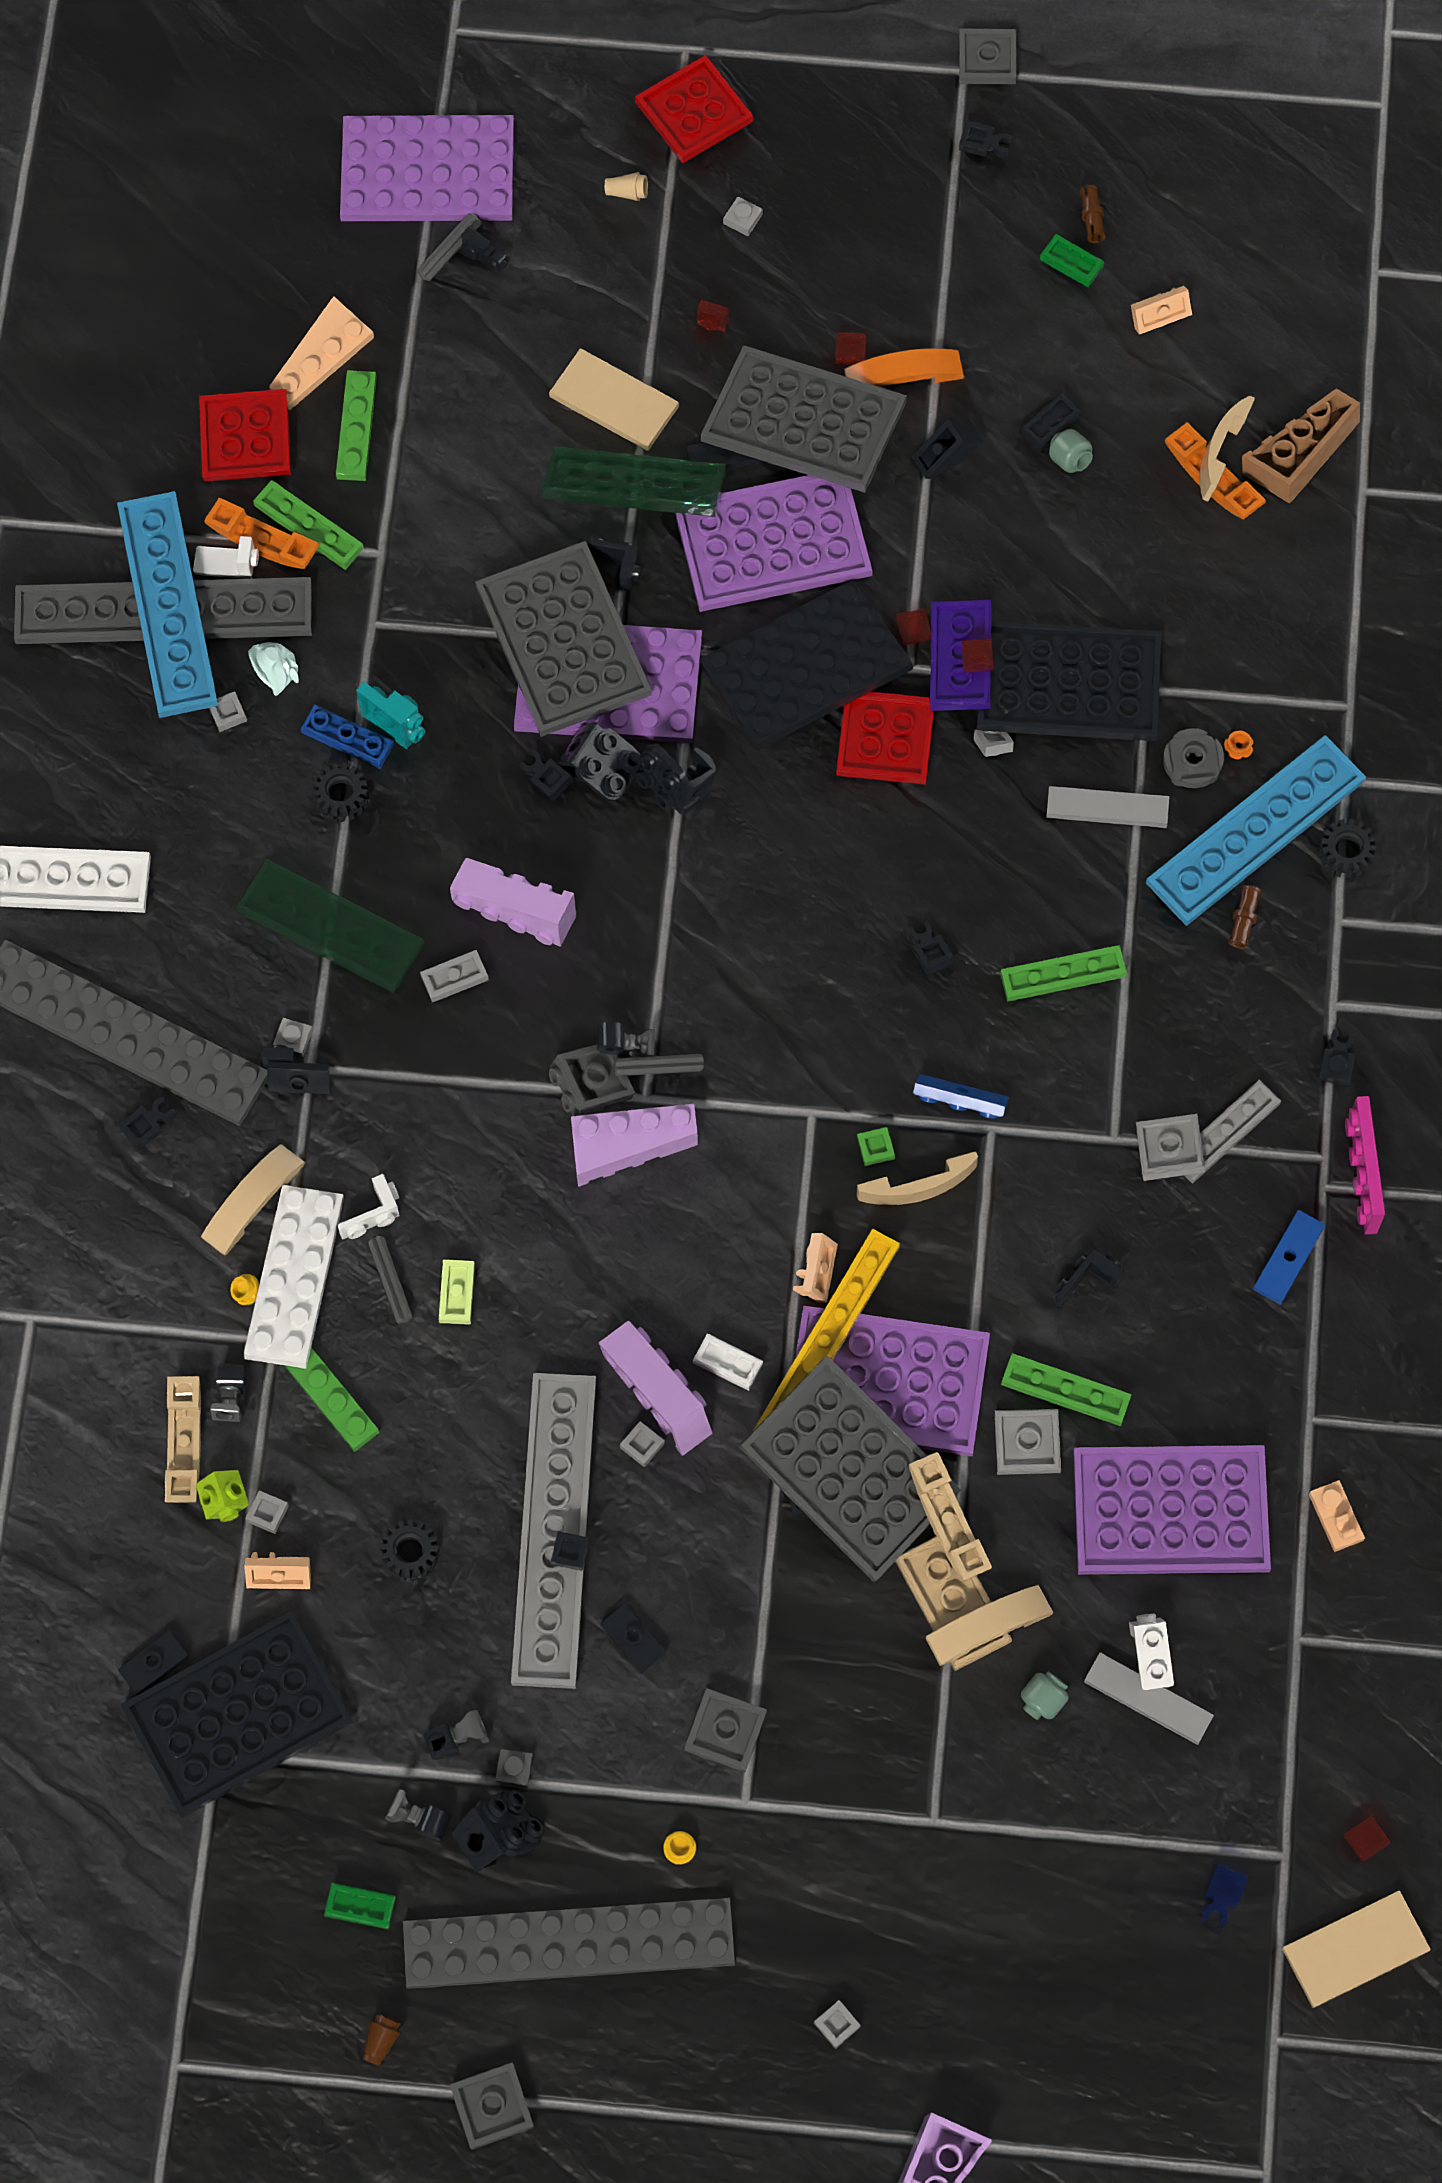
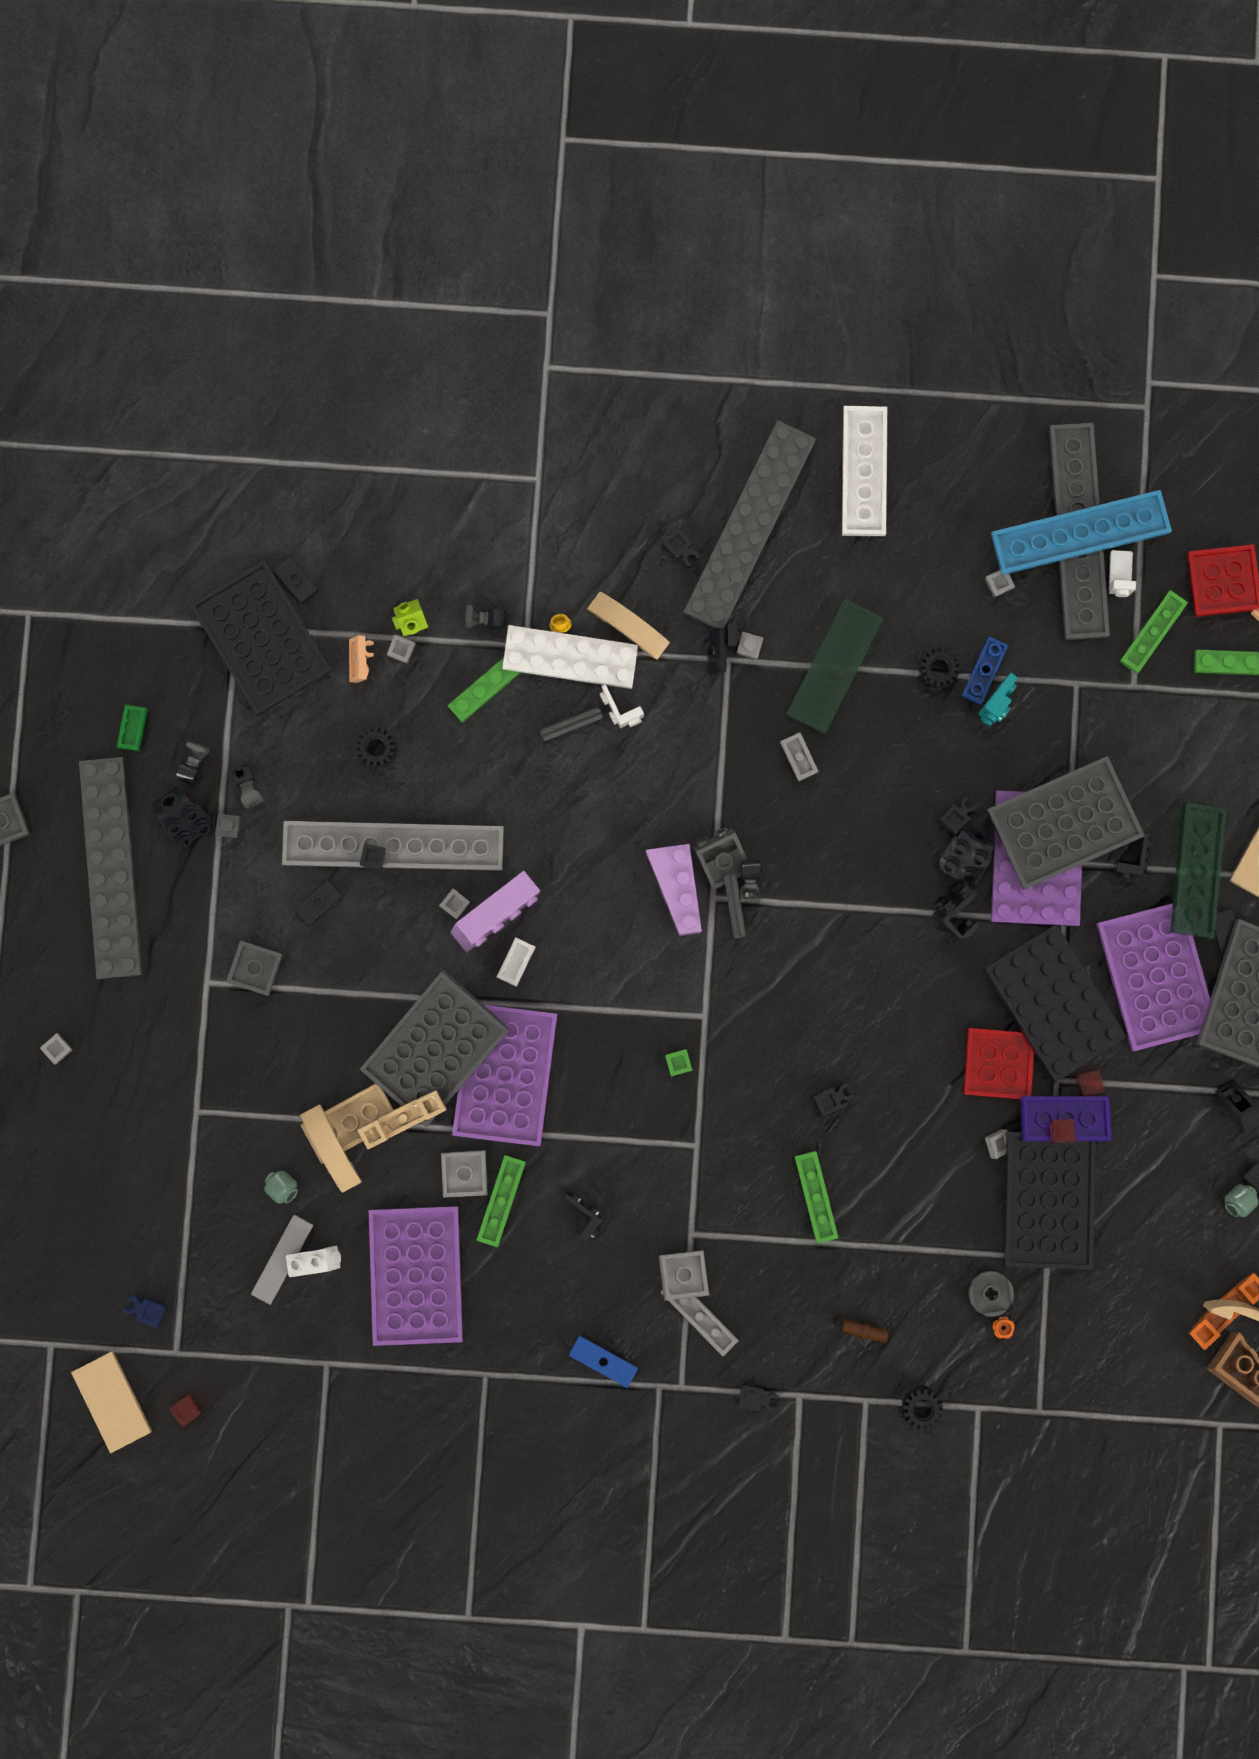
camera: 85 degrees right, 15 degrees up
(183, 1439) = (449, 589): tan slope -> none
(271, 542) = (1142, 598): orange slope -> none
(274, 665) = (1039, 613): light aqua hat -> none
(380, 2038) = (47, 747): reddish brown cone -> none
(456, 1292) = (562, 770): yellowish green plate -> none
(514, 901) = (856, 795): lavender wedge -> none
(679, 1847) = (174, 939): yellow plate -> none
(819, 1269) = (584, 1024): light nougat plate -> none
(840, 1312) = (542, 1036): yellow plate -> none
(880, 1193) = (660, 1120): tan slope -> none
(960, 1096) = (718, 1123): blue tile -> none
(1107, 807) = (950, 1229): light grey tile -> none
(1255, 830) = (935, 1340): dark azure plate -> none
(1336, 1516) = (415, 1392): light nougat plate -> none
(1364, 1157) = (679, 1417): dark pink plate -> none

